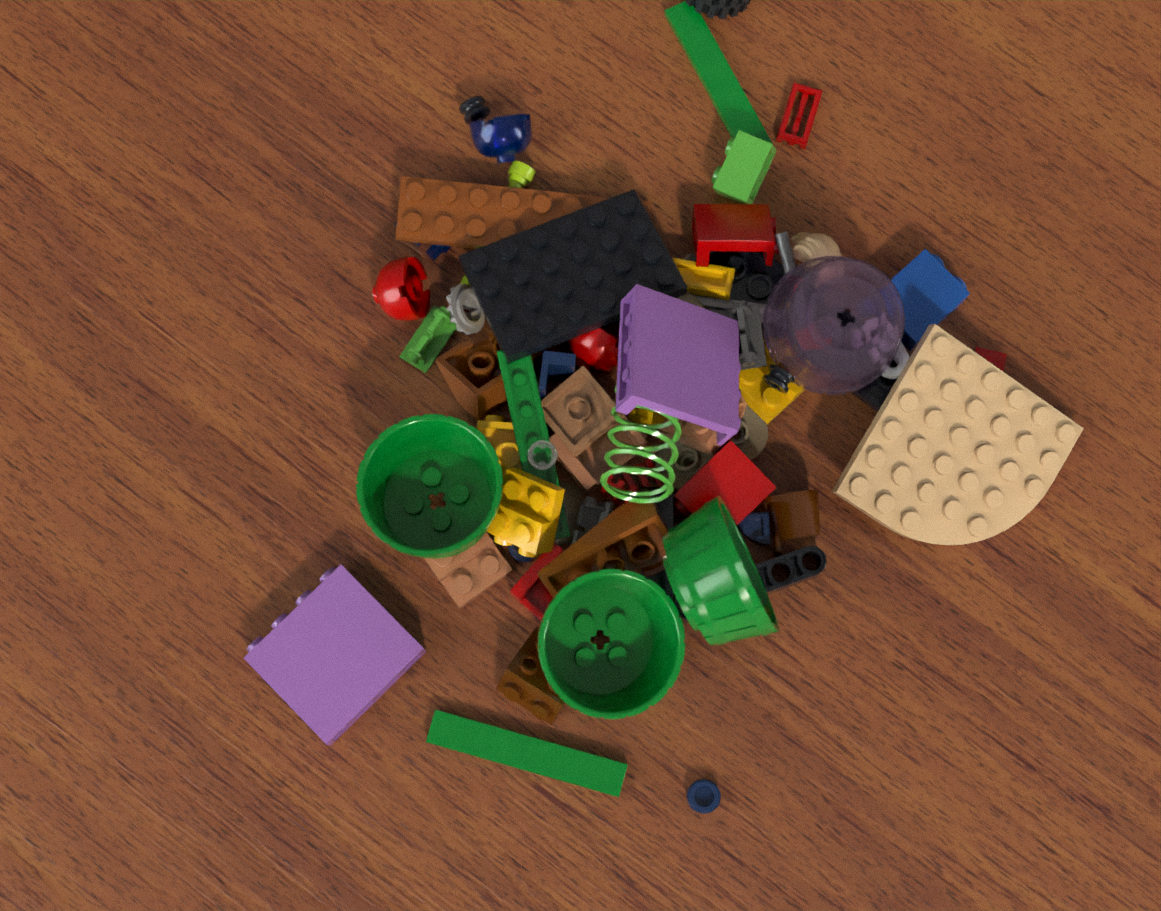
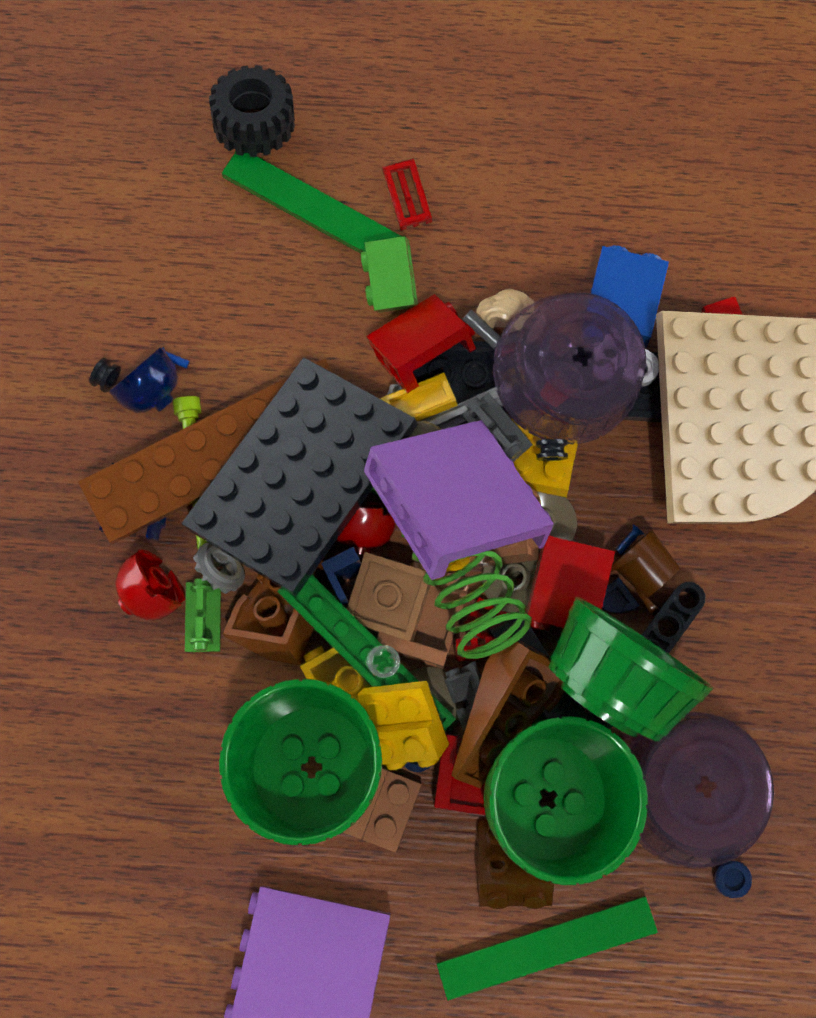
camera: 25 degrees left, 0 degrees up
(536, 132) = (177, 360): none -> blue piece
(718, 746) = (683, 823): none -> clear purple piece
(800, 487) = (629, 539): none -> blue piece

